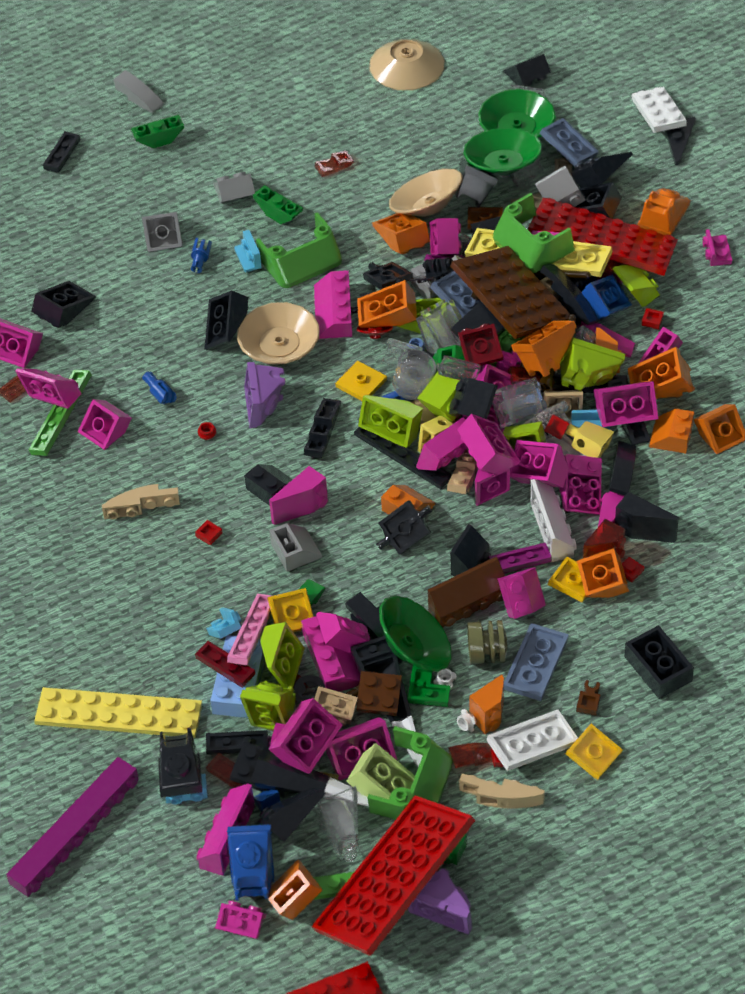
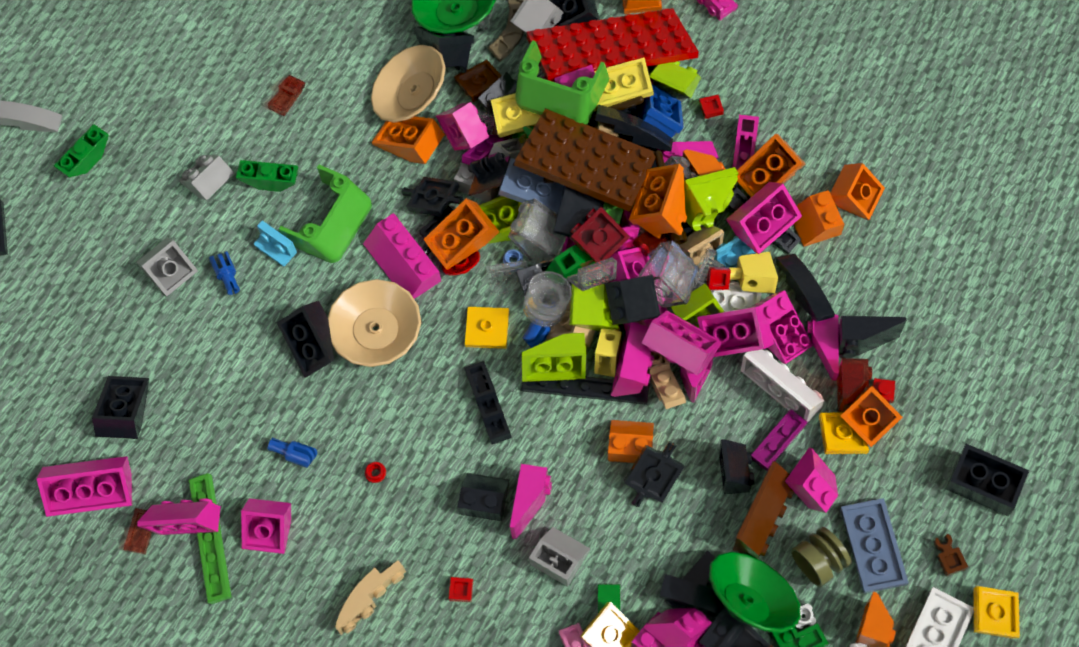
camera: 30 degrees left, 15 degrees up
(262, 391) = (402, 399): medium lavender piece -> none

